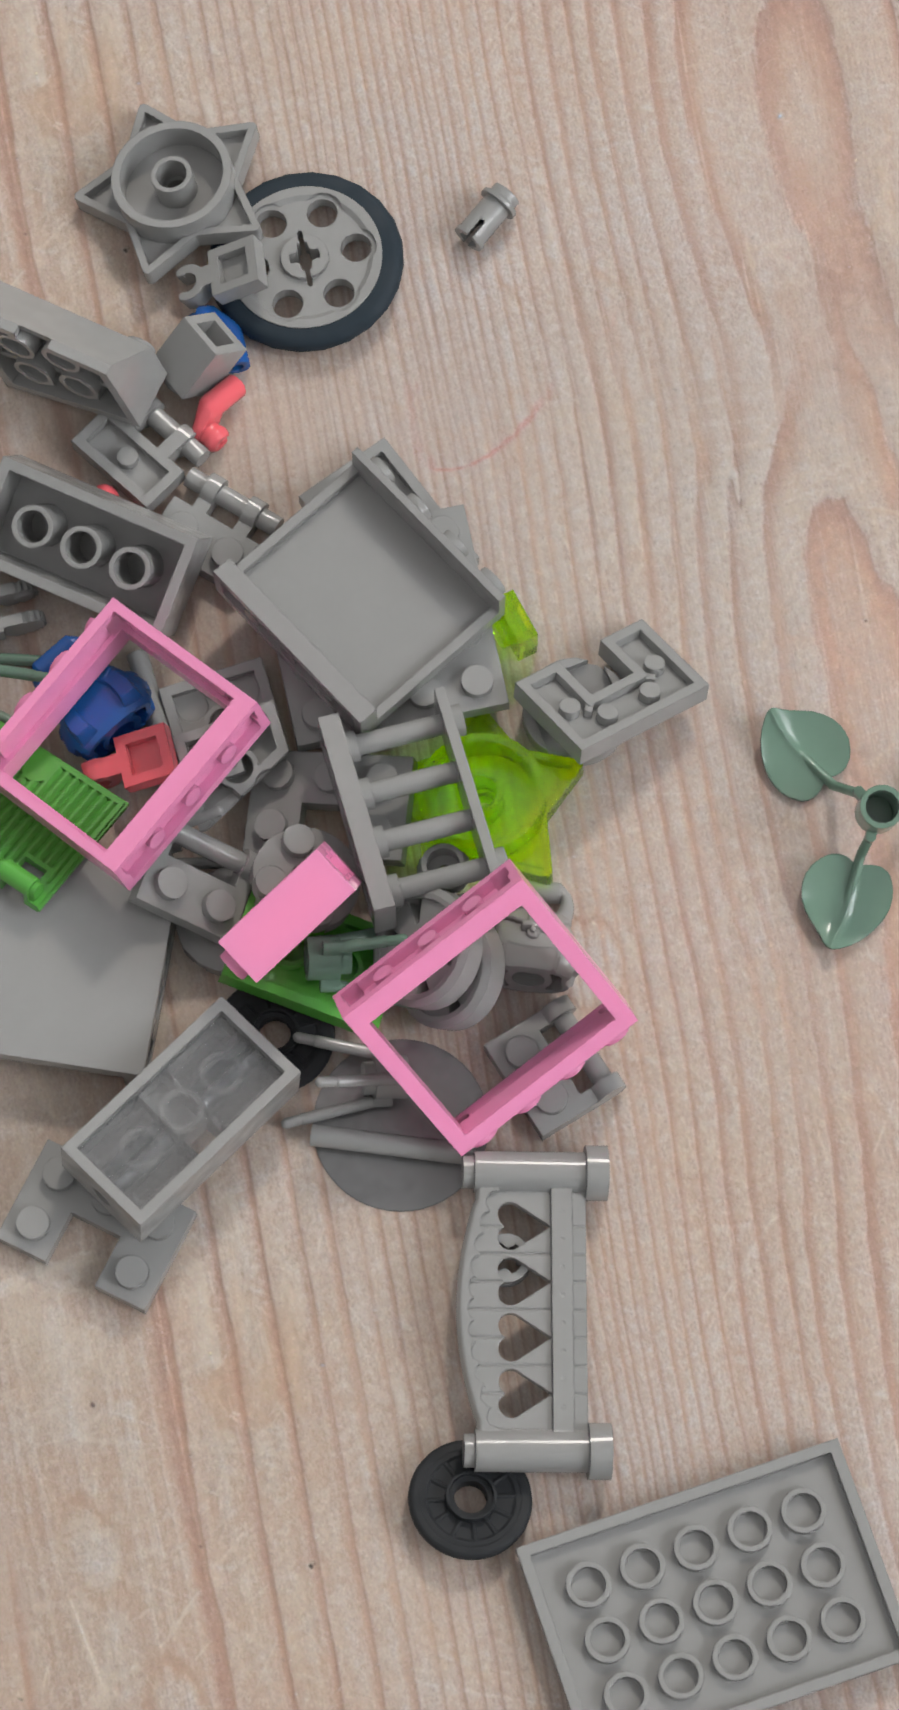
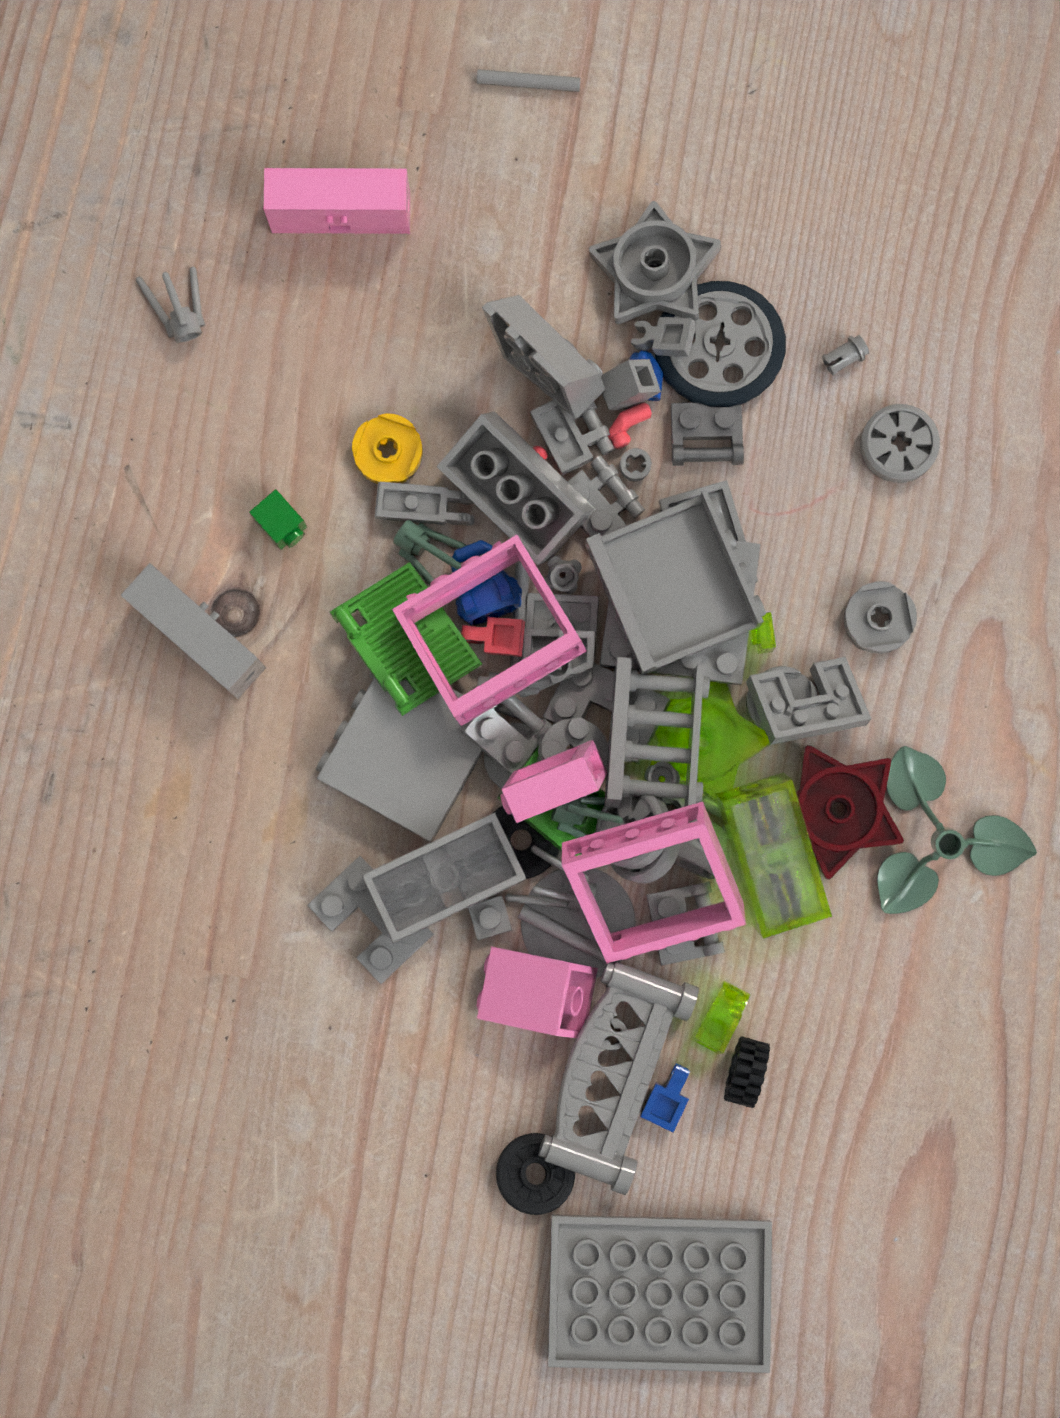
camera: 20 degrees right, 10 degrees up
(209, 635) = (567, 583): none -> light grey plate
(240, 450) = (634, 454): none -> light grey bush
(270, 1161) = (490, 918): none -> light grey plate
(327, 374) = (703, 422): none -> flat silver plate
(375, 1236) = (536, 993): none -> bright pink slope
(594, 334) = (914, 428): none -> light grey wheel
(622, 1328) = (666, 1103): none -> blue plate
(642, 918) = (773, 855): none -> clear brick
(655, 1180) = (721, 1018): none -> clear neon green leg
(660, 577) = (893, 602): none -> light grey plate
(720, 790) = (861, 791): none -> dark red plate
(720, 1235) = (747, 1072): none -> black tyre

